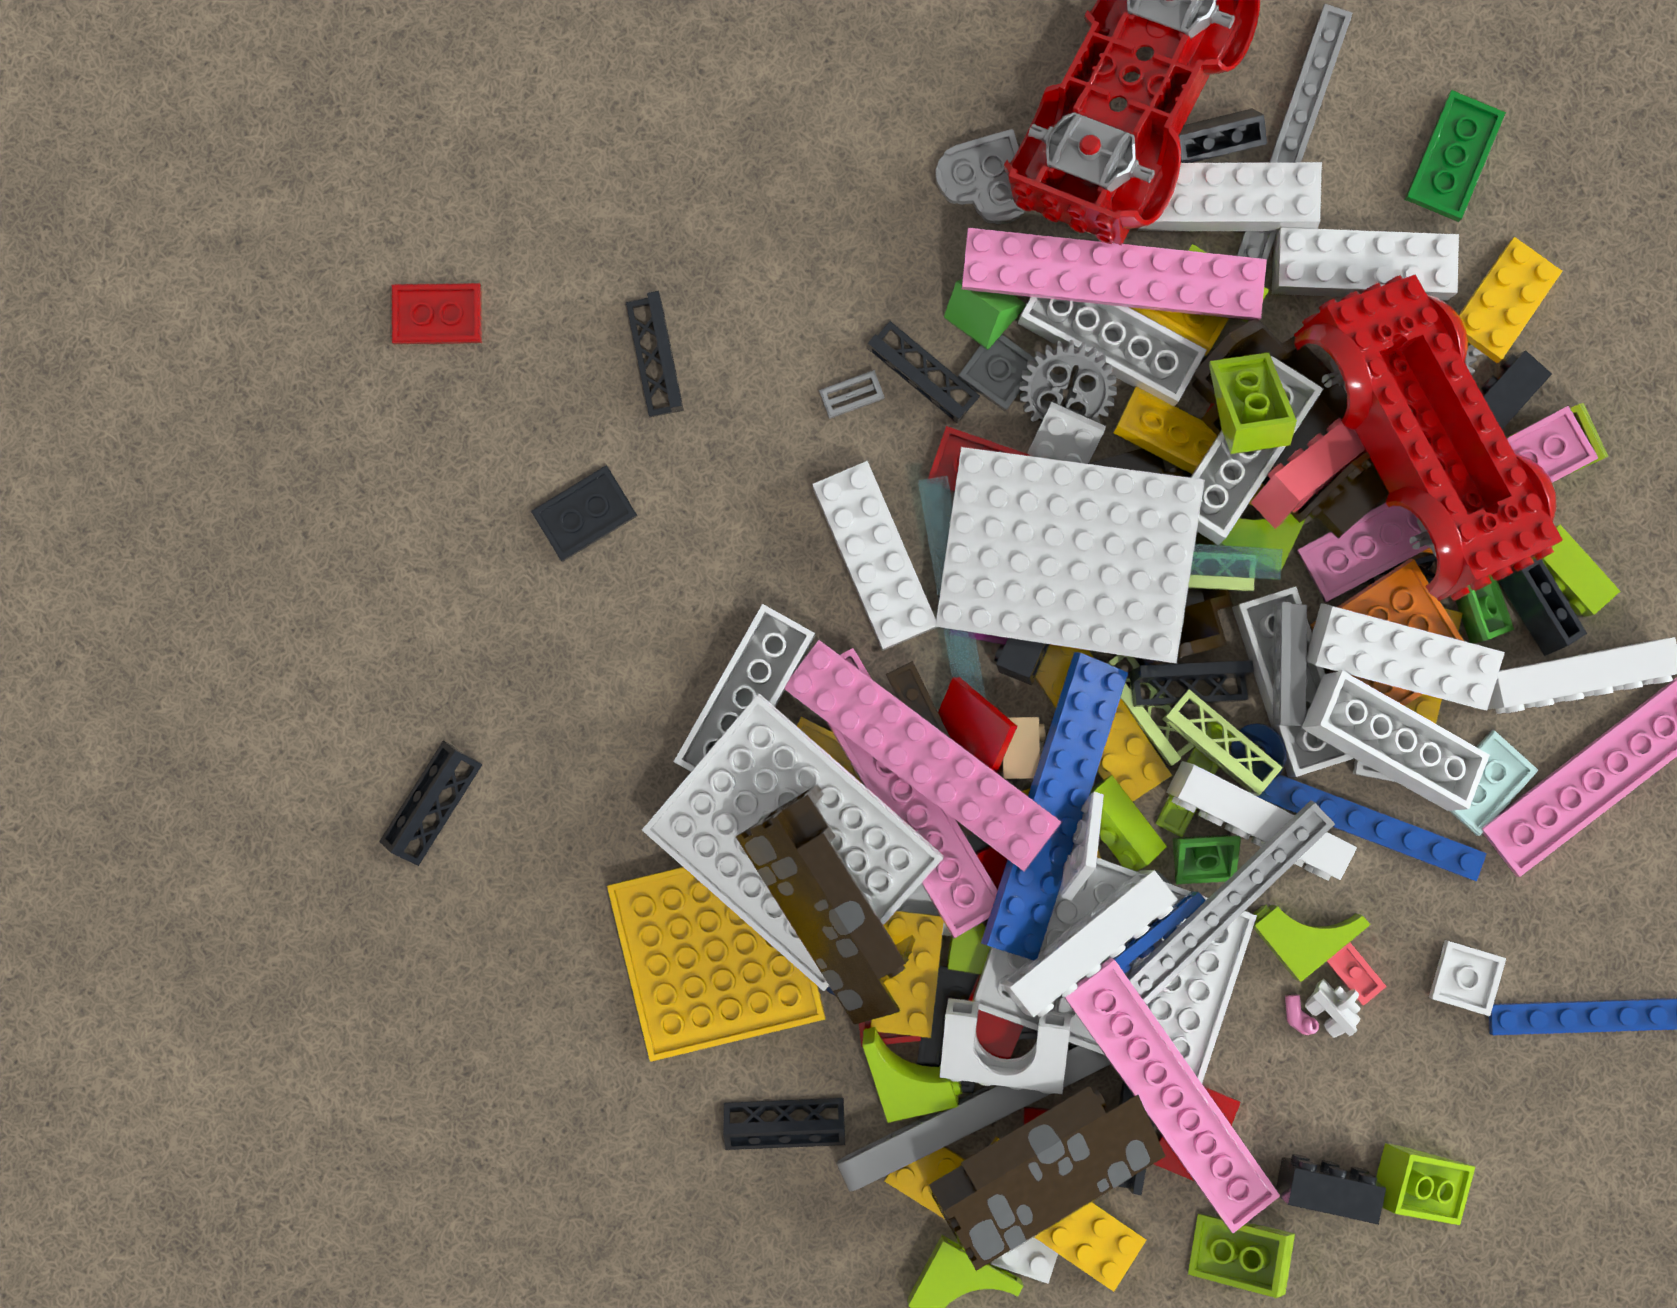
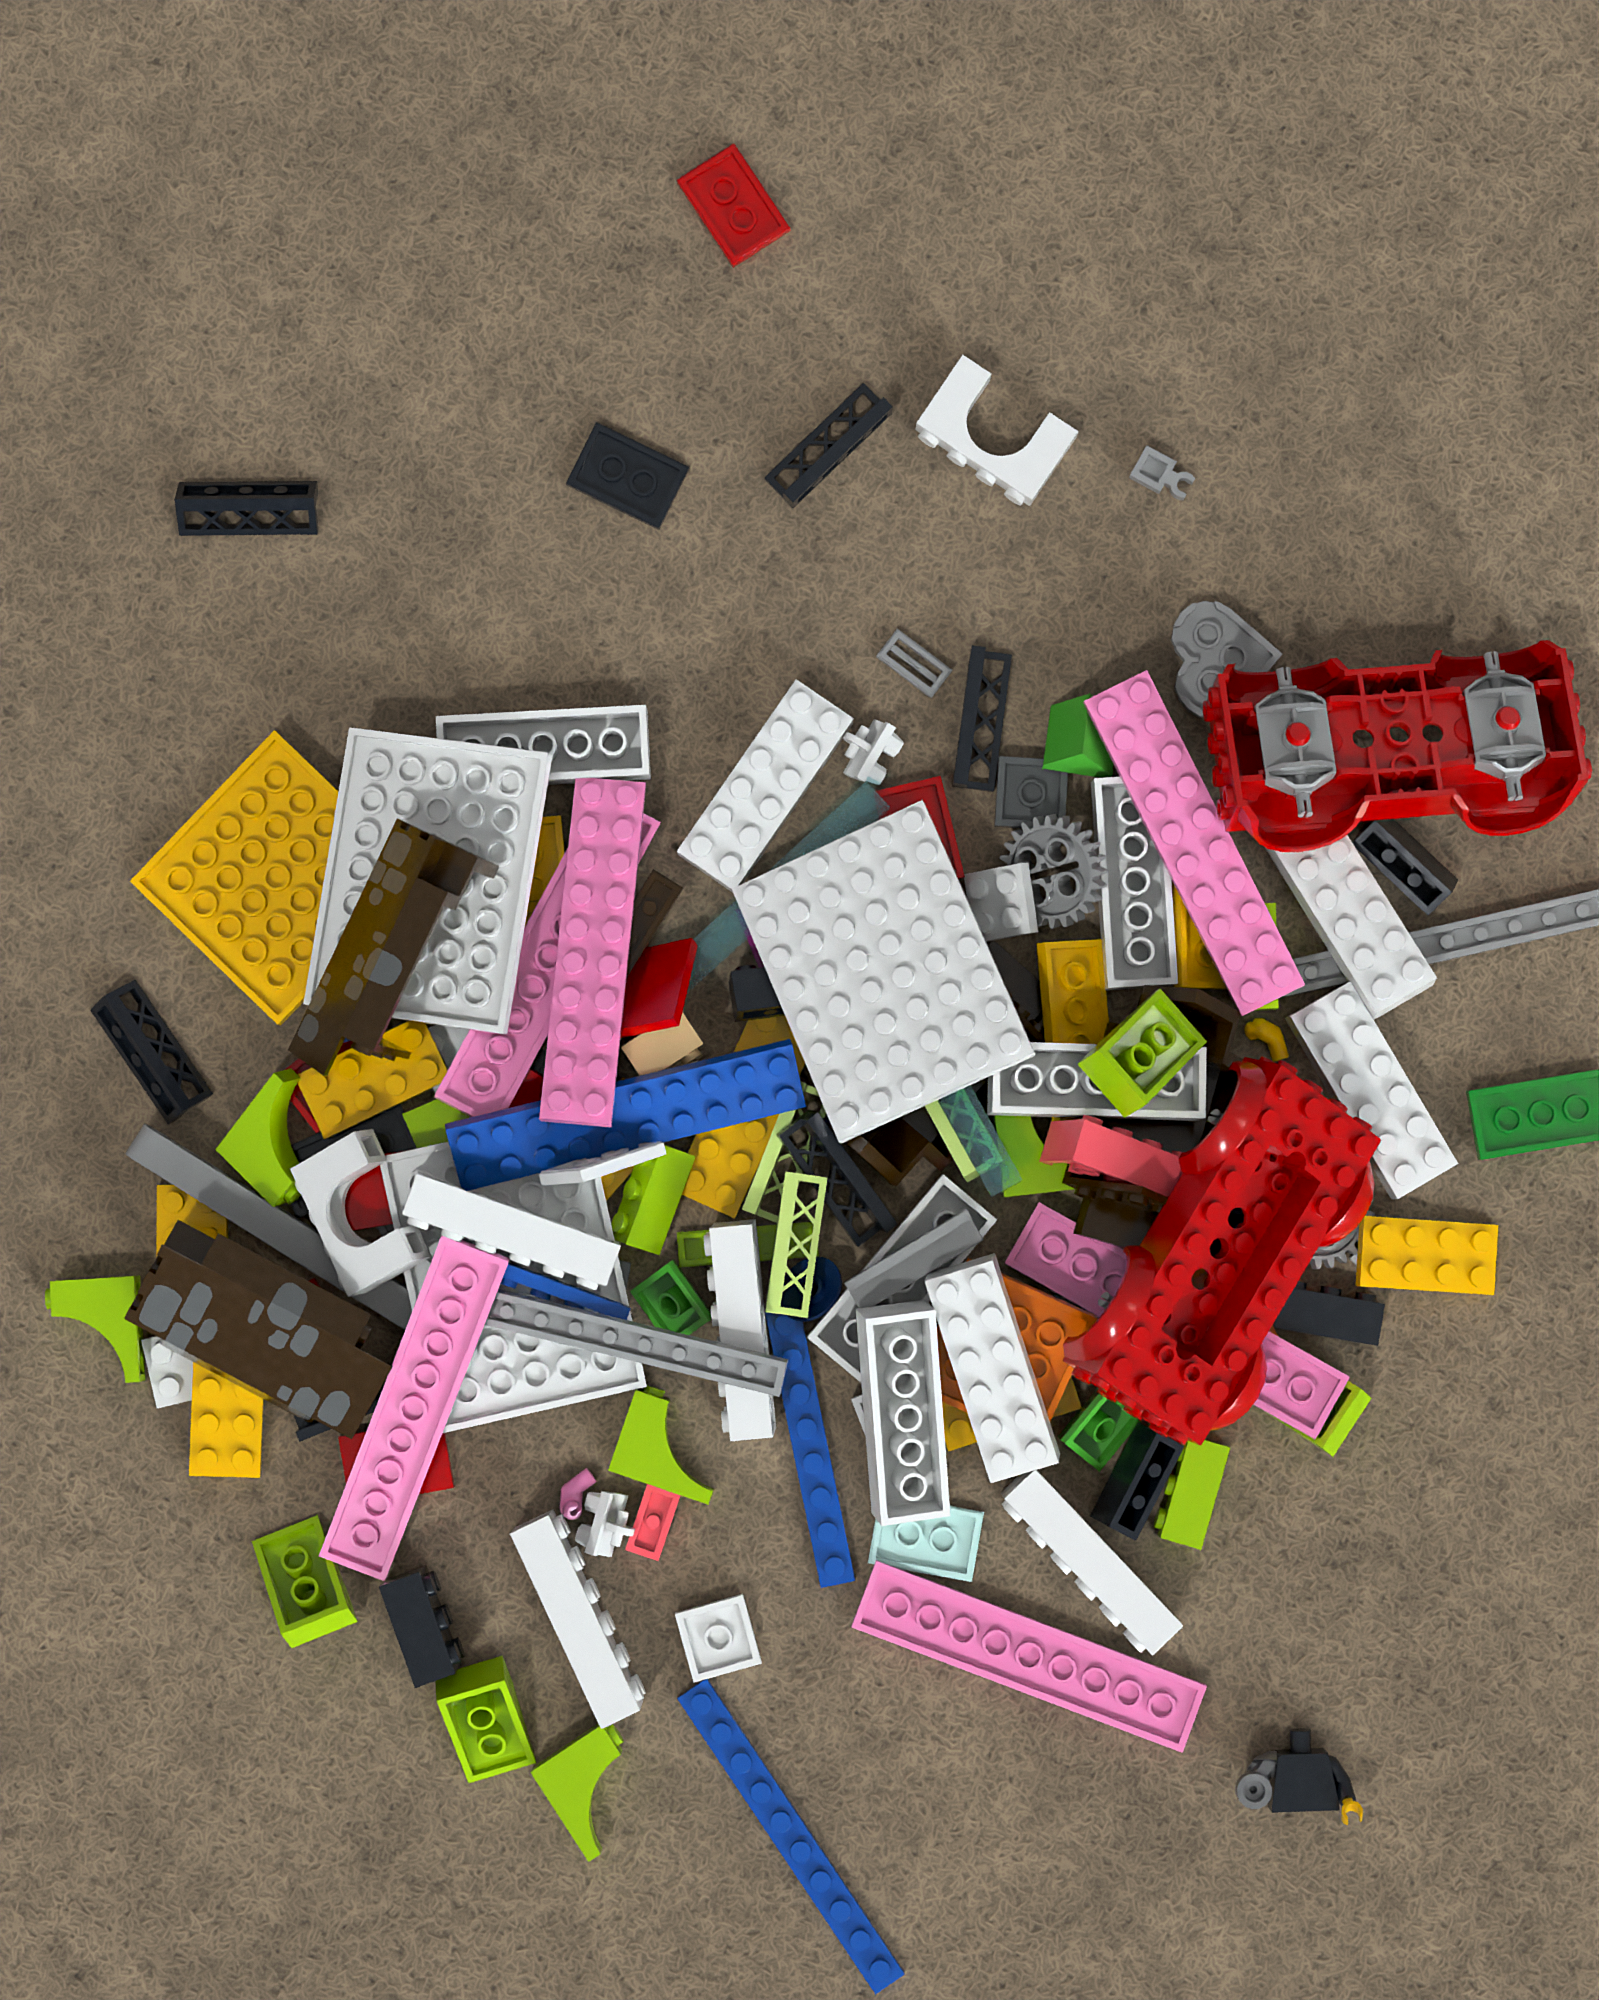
camera: 60 degrees right, 0 degrees up
(764, 233) = (1019, 473): none -> white arch
(824, 135) = (1156, 471): none -> light grey plate
(894, 466) = (867, 747): none -> white hips
(1278, 310) = (1270, 1034): none -> yellow arm
(1395, 1072) = (577, 1618): none -> white brick
(1502, 1146) = (570, 1779): none -> lime arch

